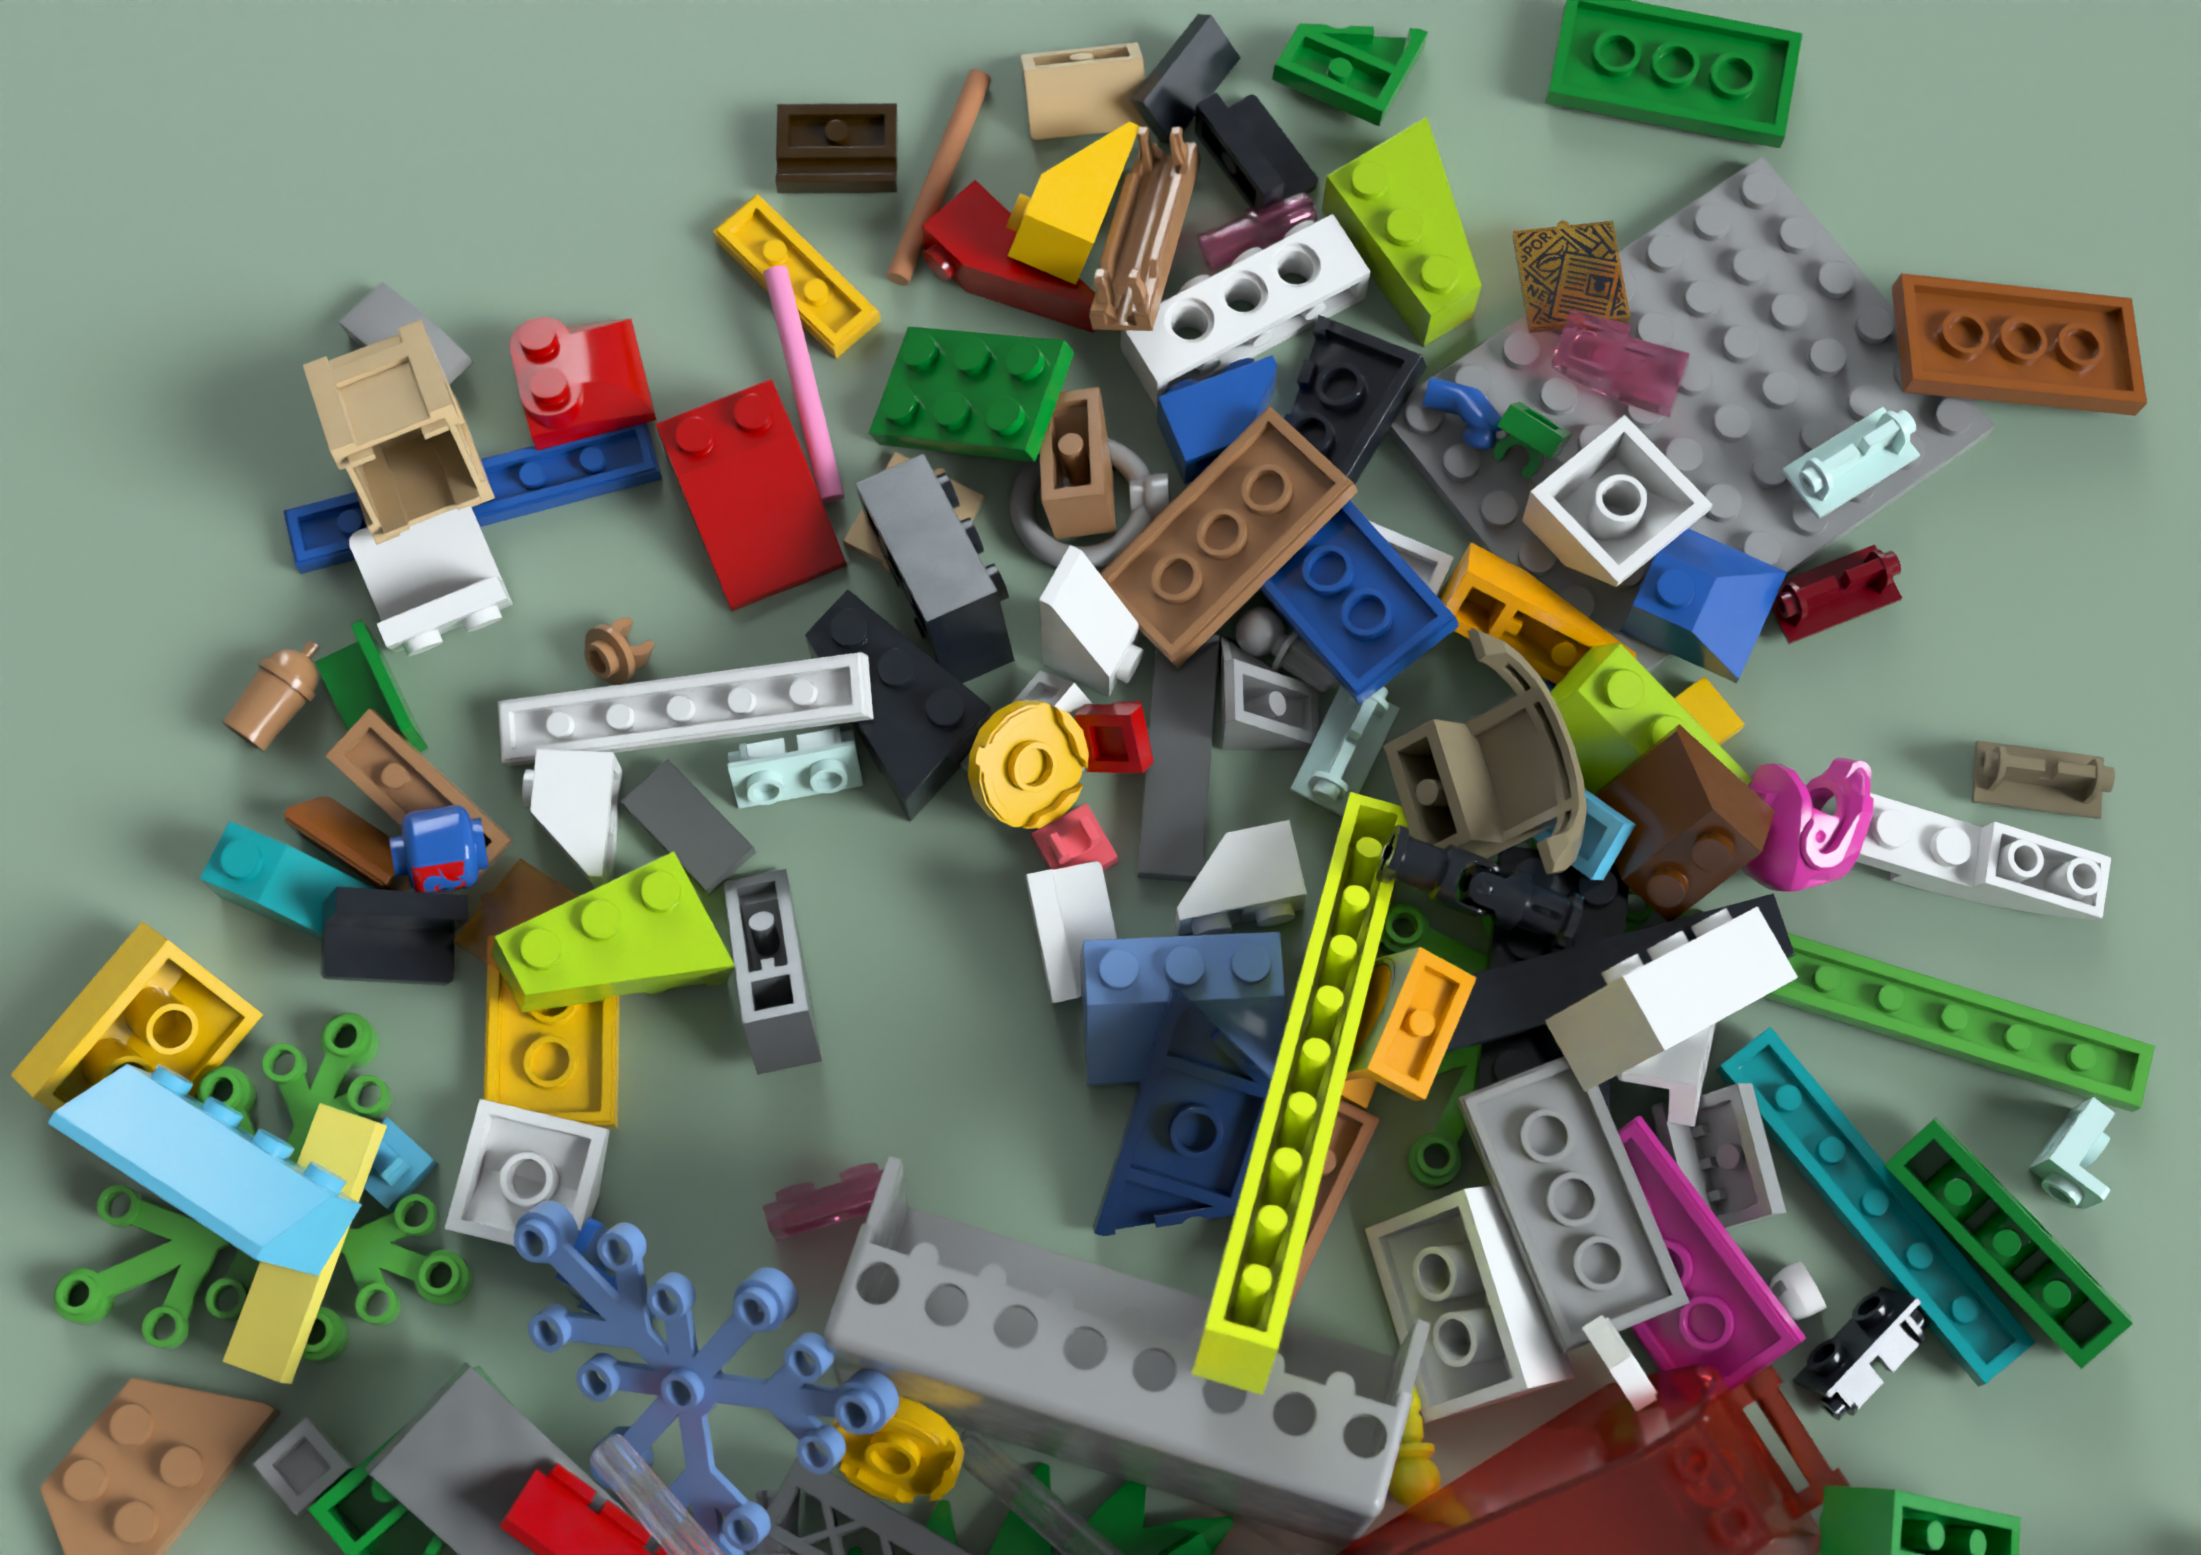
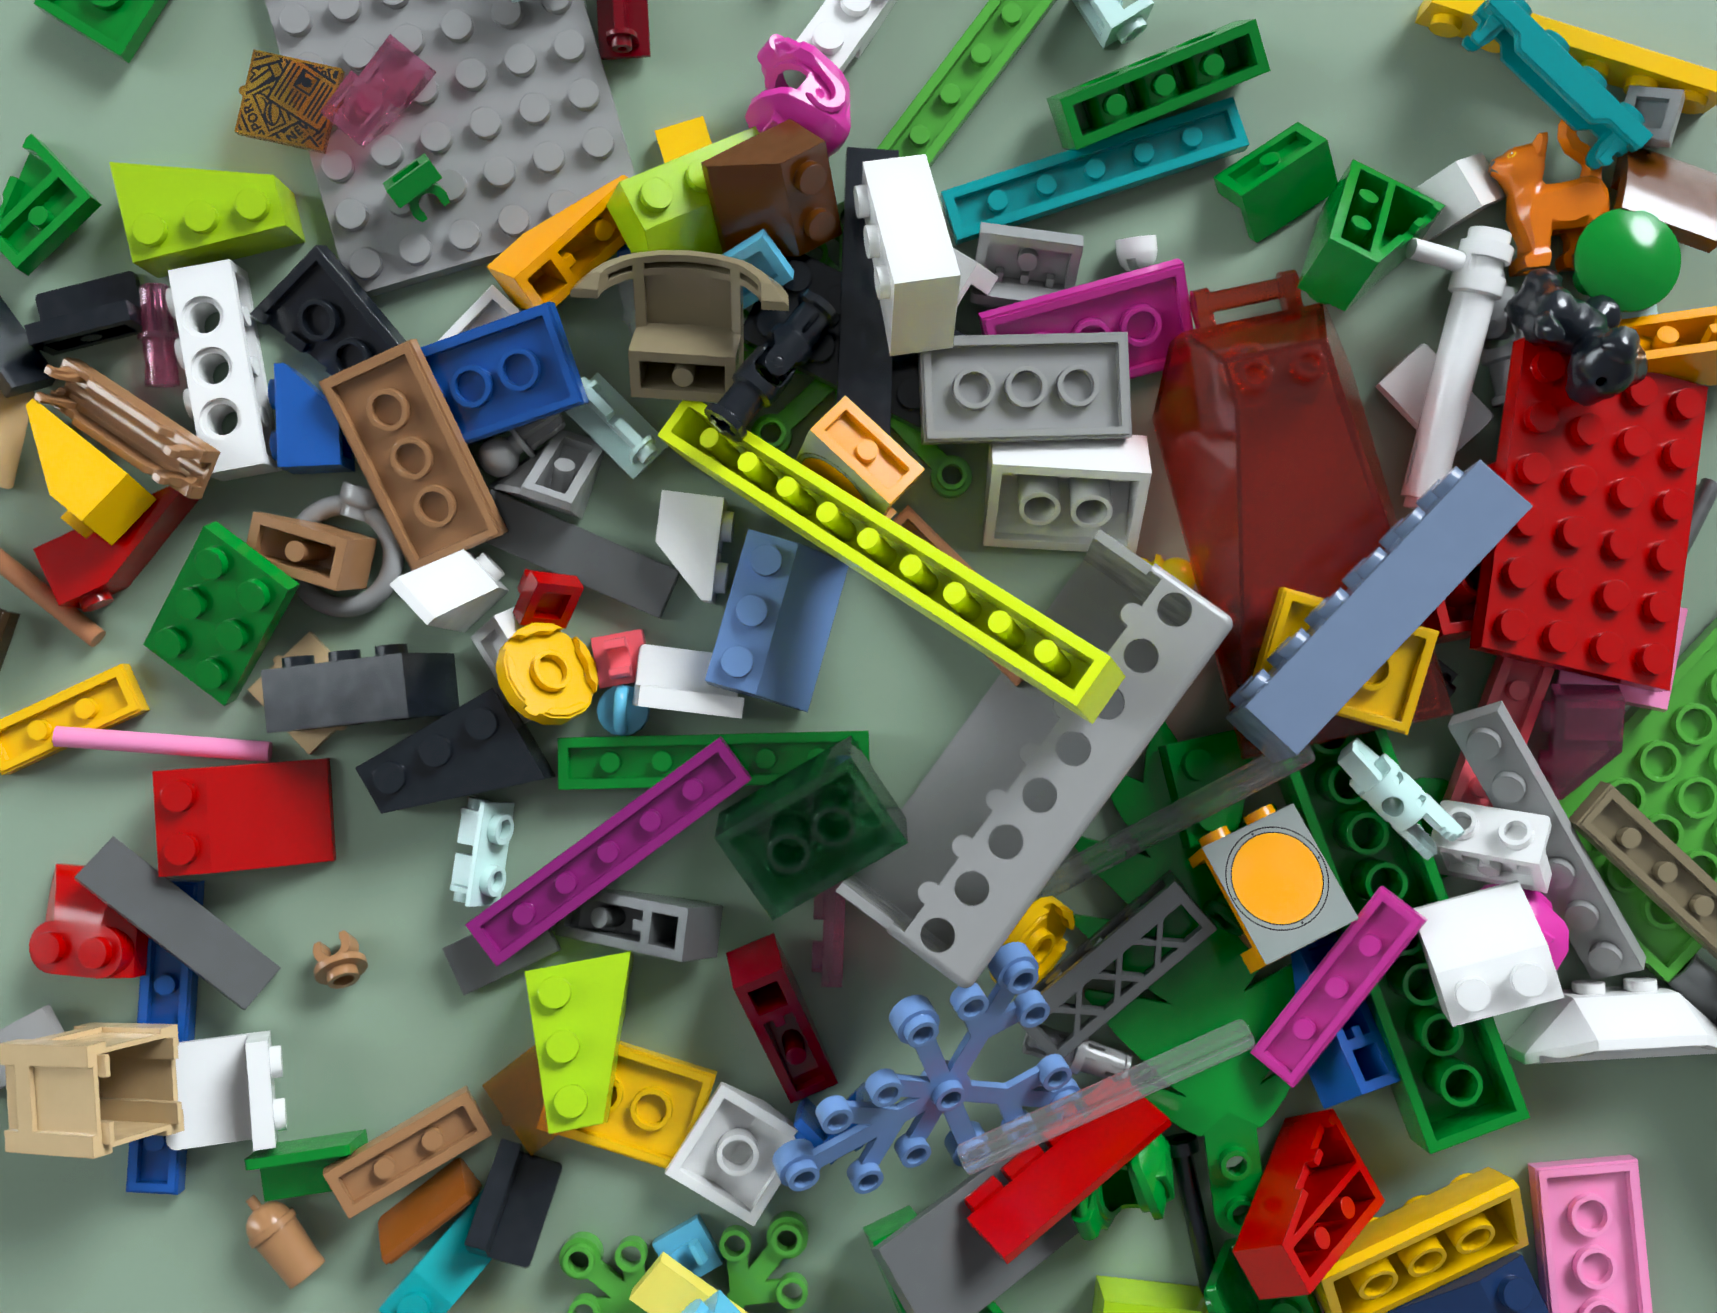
camera: 75 degrees left, 15 degrees up
(440, 849) = (458, 1151): blue head -> none
(578, 806) = (459, 1030): white slope -> none
(607, 464) = (177, 923): none -> dark grey tile
(688, 708) = (409, 923): white tile -> none
(711, 1172) = (780, 1017): none -> dark red slope
(846, 904) = (608, 851): none -> magenta plate
(957, 1124) = (811, 828): none -> clear green brick
(993, 996) = (646, 760): none -> green plate
(1006, 868) = (618, 713): none -> medium azure tile
(1186, 1127) = (869, 648): dark blue wing -> none
(1471, 407) = (372, 223): blue arm -> none
(1613, 505) = (500, 142): white slope -> none
(1620, 1362) = (1155, 398): white tile -> none
(1704, 603) = (596, 106): blue slope -> none
(1880, 1328) = (1182, 203): black hinge -> none
(1957, 1440) = (1279, 180): none -> green panel

